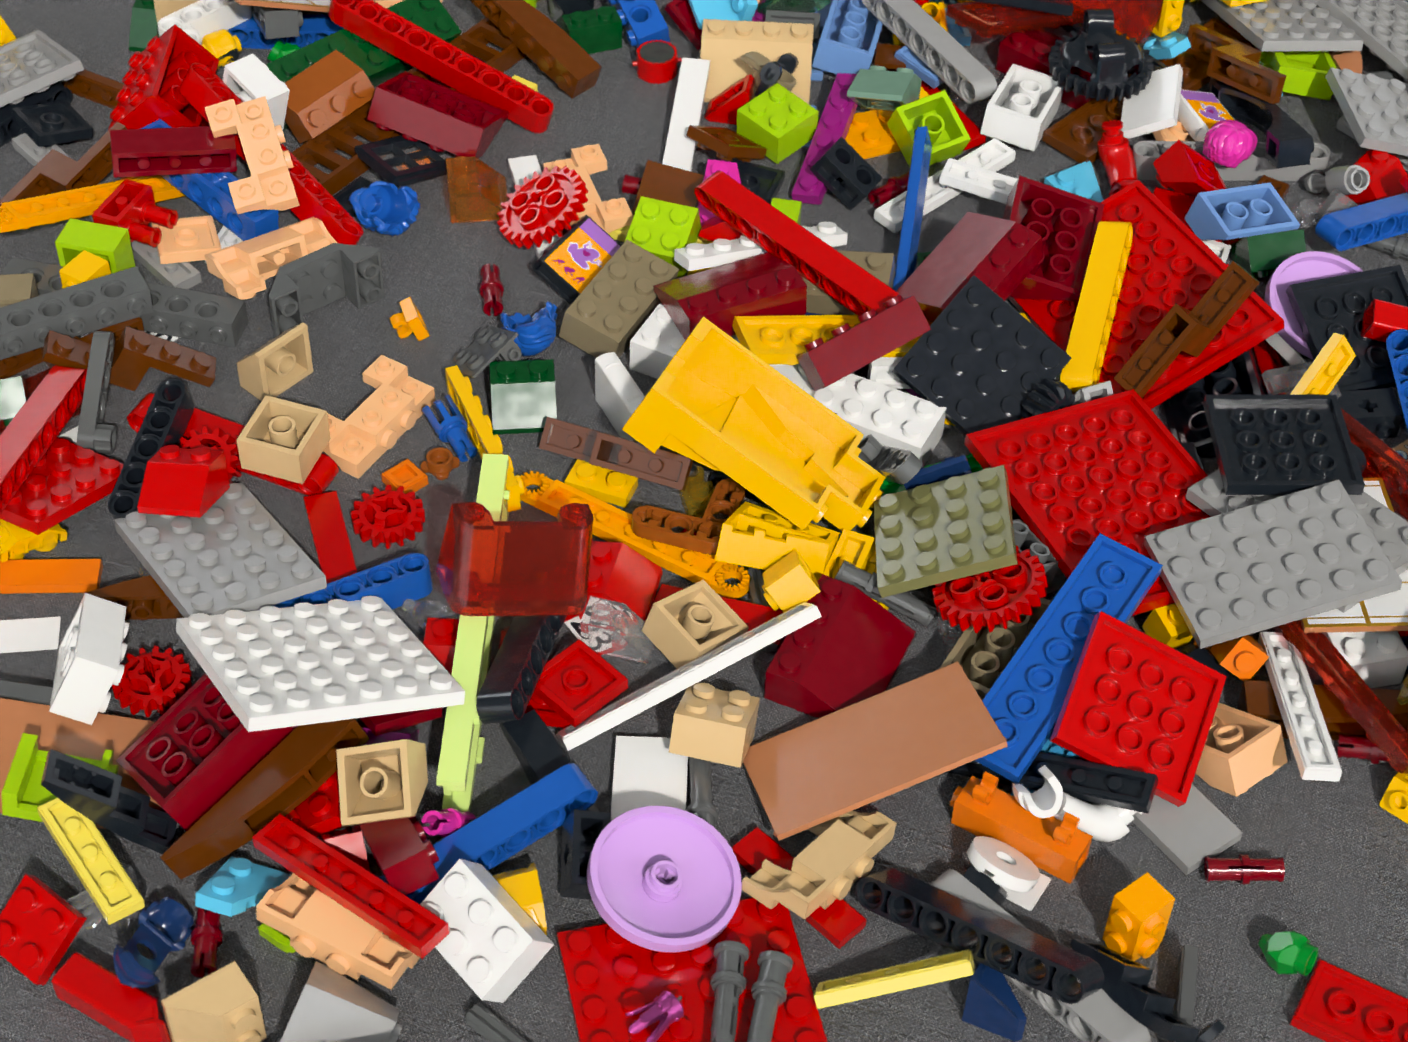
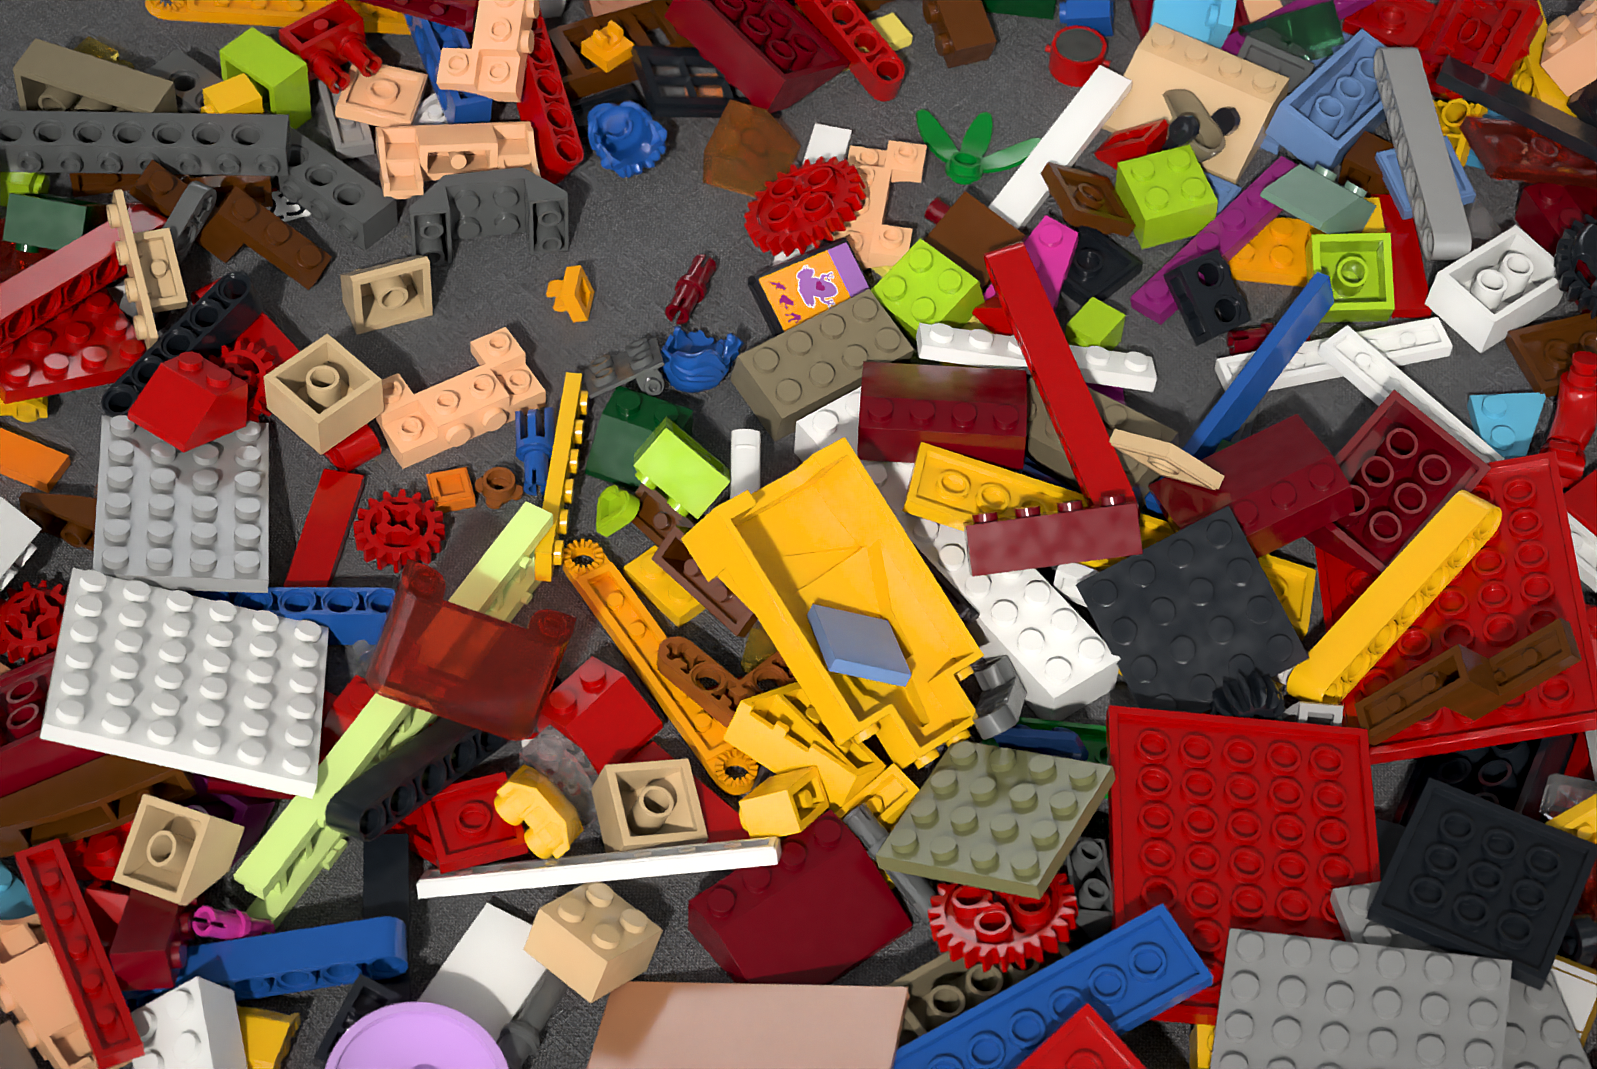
camera: 25 degrees right, 5 degrees up
(95, 402) = (152, 269): none -> tan bracket
(336, 153) = (607, 47): none -> light orange tile
(535, 446) = (615, 510): none -> lime tile
(573, 396) = (680, 469): none -> brick
(618, 646) = (538, 802): none -> yellow slope
(624, 148) = (969, 163): none -> green plant
(784, 456) = (858, 645): none -> medium blue tile
(907, 266) = (1166, 459): none -> tan tile

